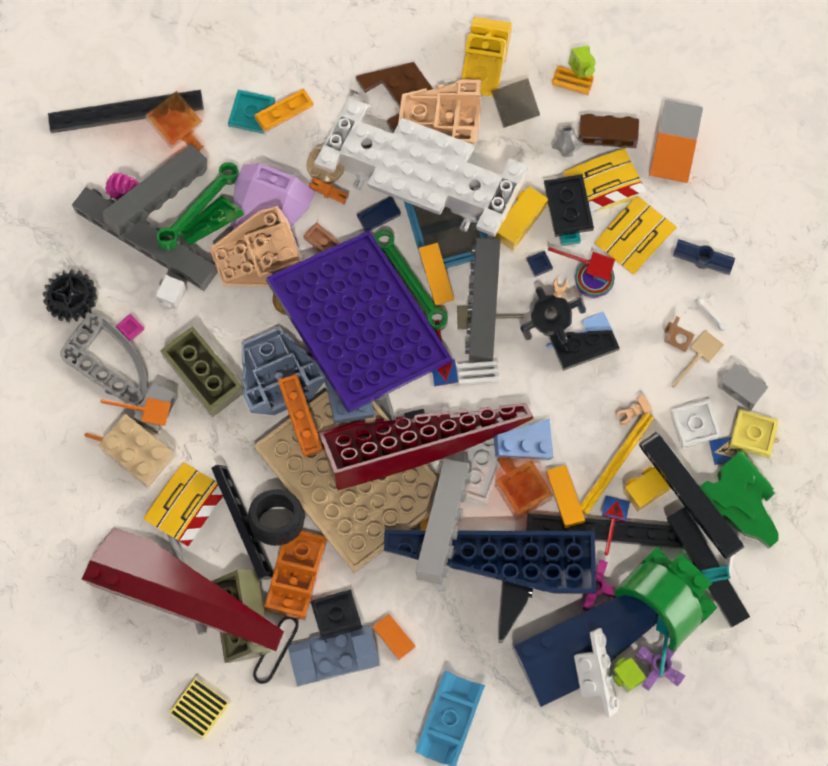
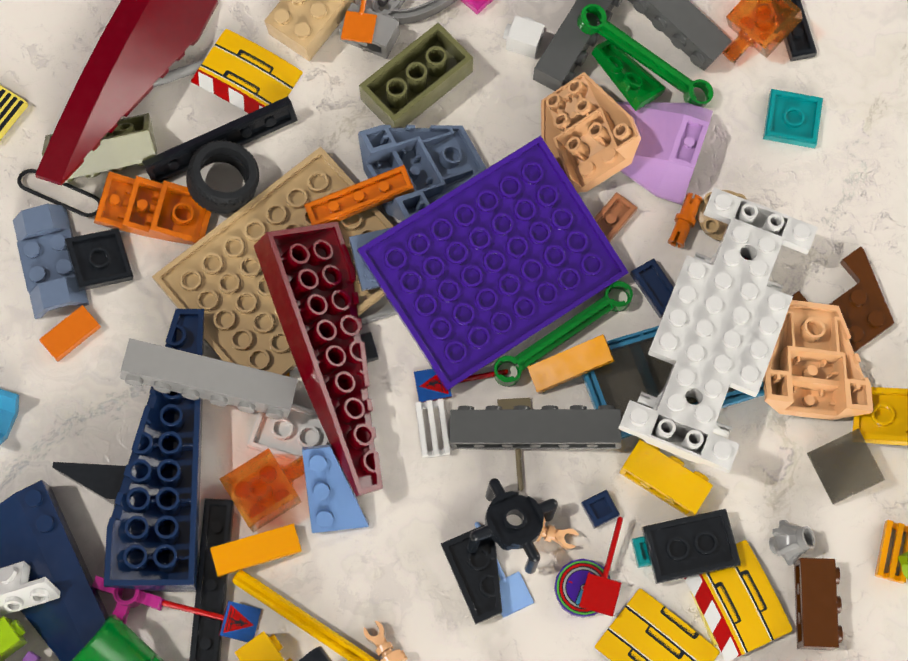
camera: 85 degrees right, 0 degrees up
(284, 110) = (798, 156): light orange tile -> none

